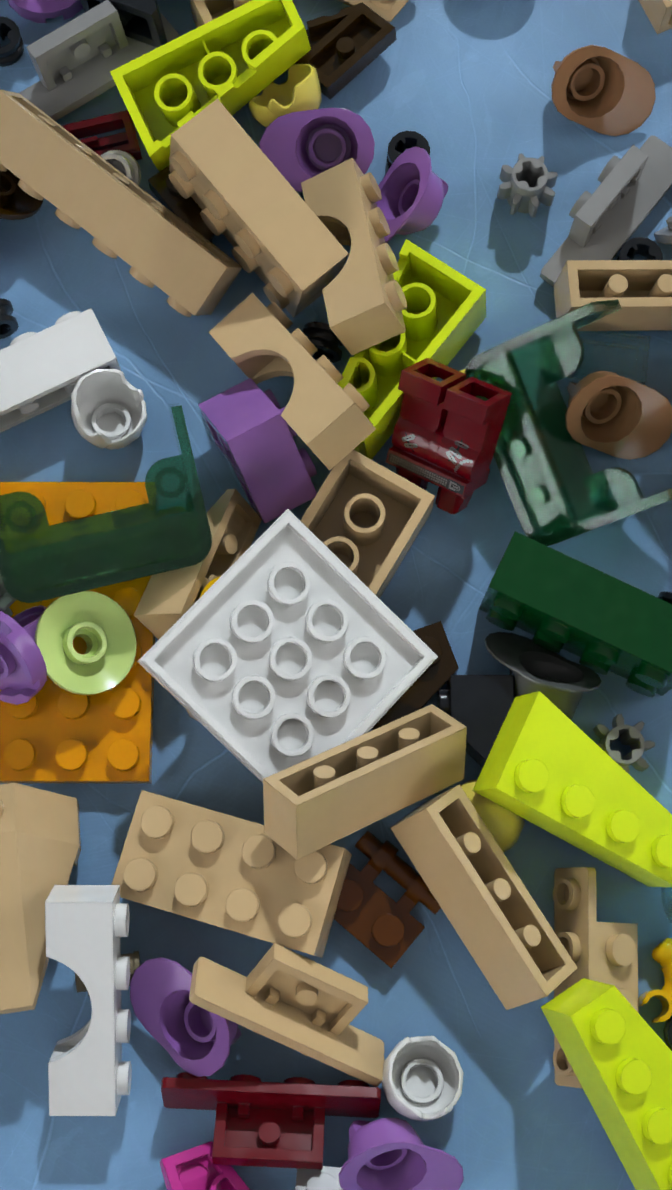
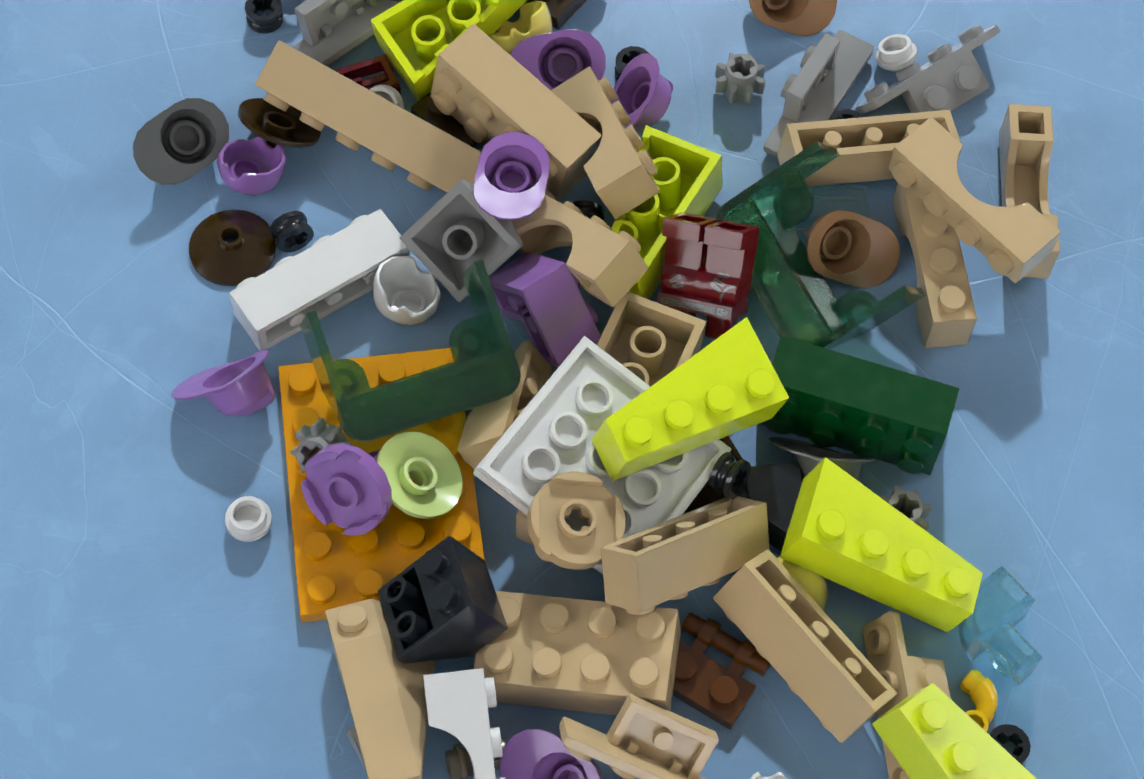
camera: 10 degrees left, 15 degrees down
(87, 806) = (442, 605): none -> black slope
(178, 356) = (457, 235): none -> light grey slope
(220, 713) = (555, 540): none -> tan plate
(235, 297) = (511, 176): none -> medium lavender piece
(411, 604) = (697, 403): none -> neon yellow wedge
(431, 687) = (729, 475): none -> black bush

